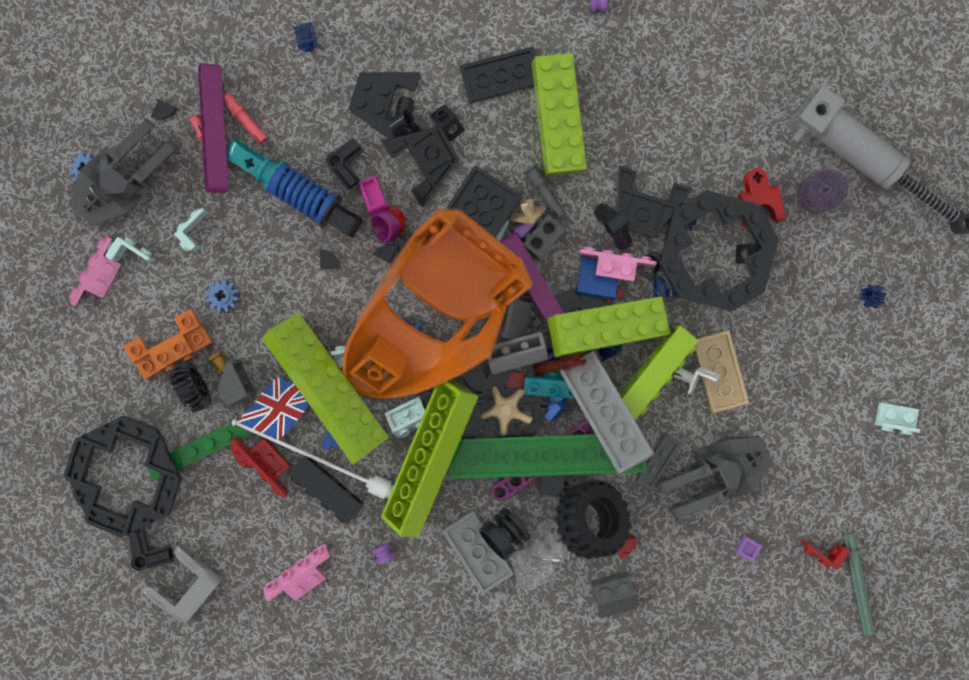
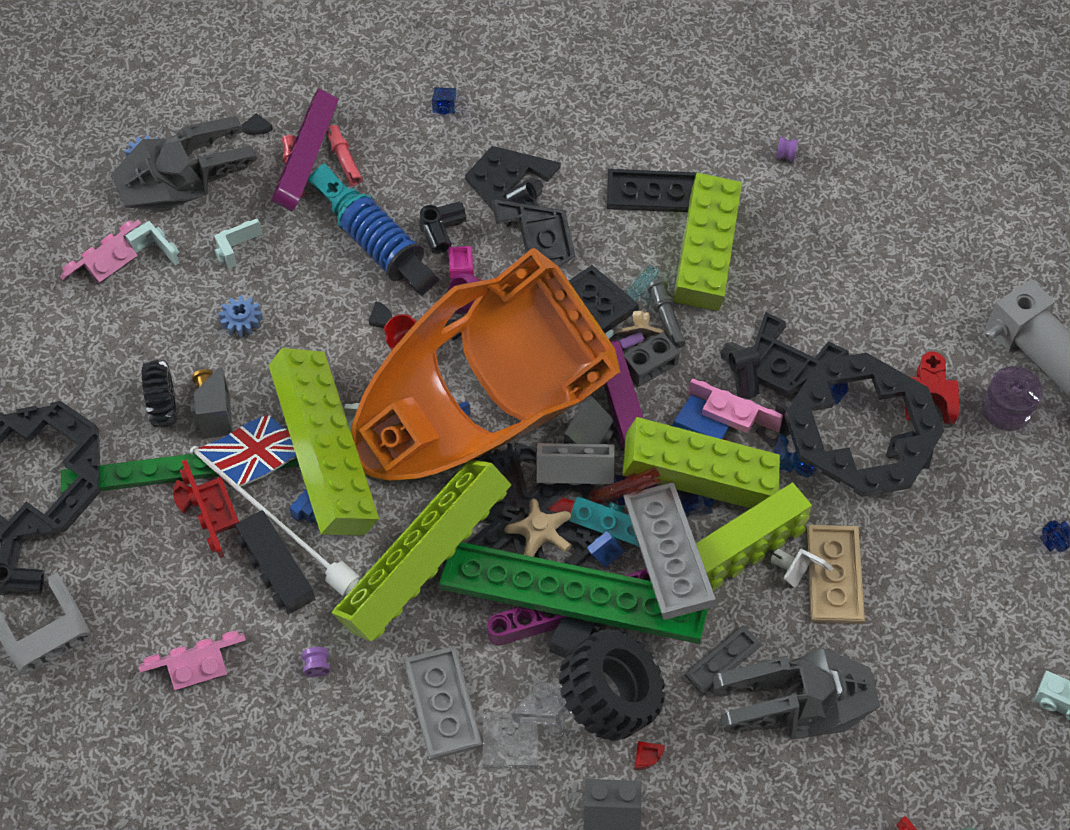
camera: 20 degrees right, 30 degrees down
(171, 351) = (179, 350): orange bracket -> none
(351, 275) = (397, 328): none -> red hair
(405, 417) = (404, 509): light aqua bracket -> none
(446, 118) = (574, 211): black bracket -> none
(507, 531) = (487, 674): black wheel -> none
(517, 168) = (642, 282): none -> clear light blue axle
(748, 548) = (819, 806): medium lavender plate -> none

